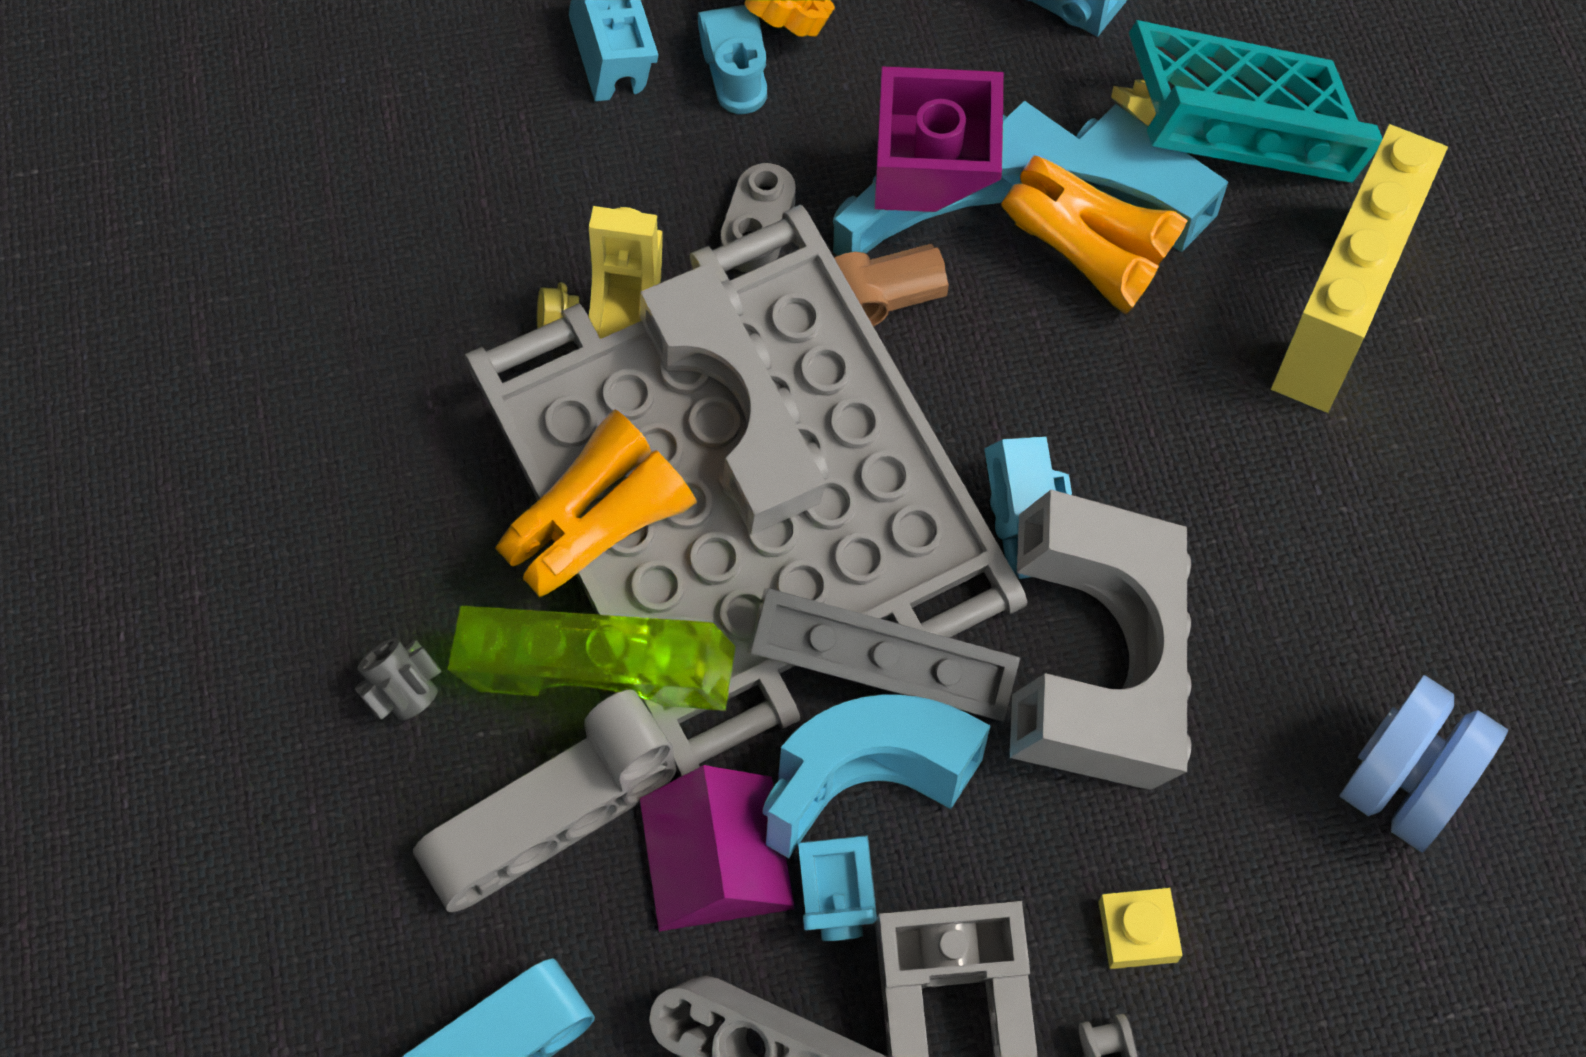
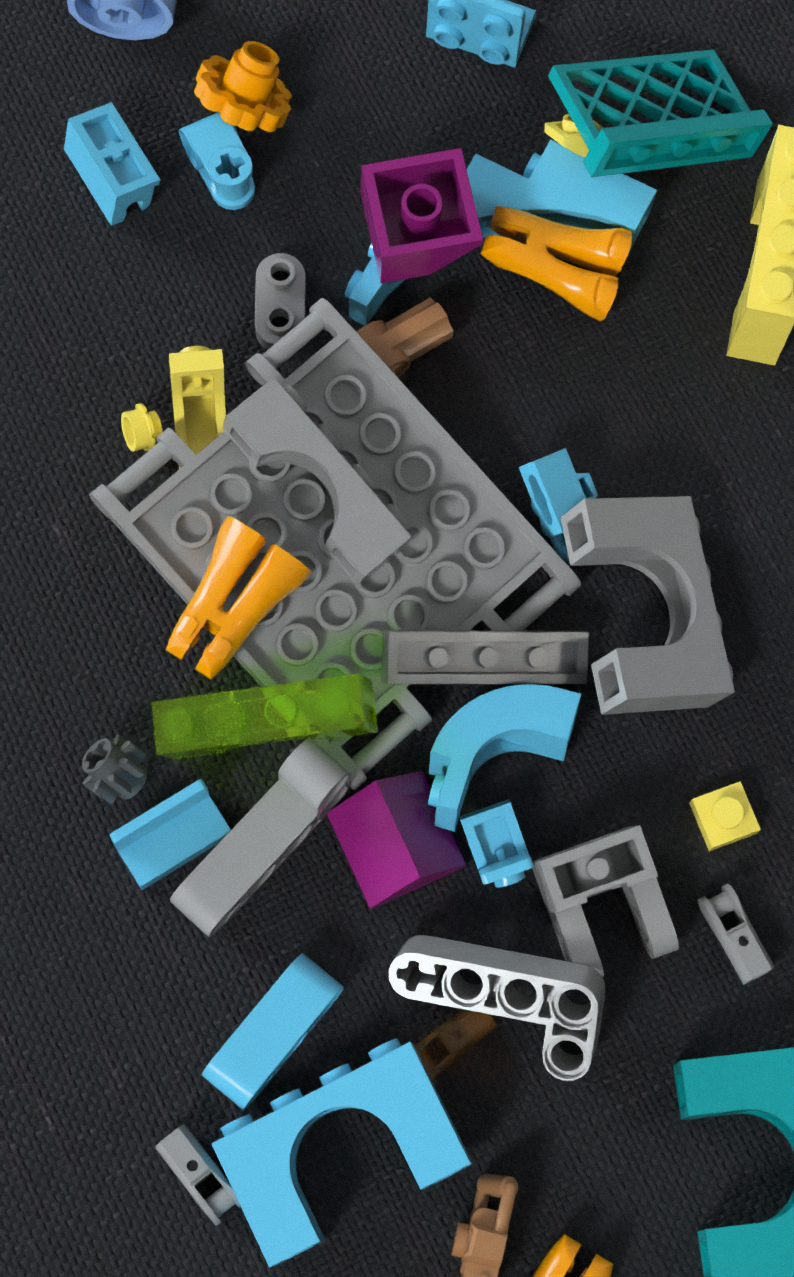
camera: 20 degrees left, 10 degrees up
(437, 771) = (170, 834): none -> medium azure panel

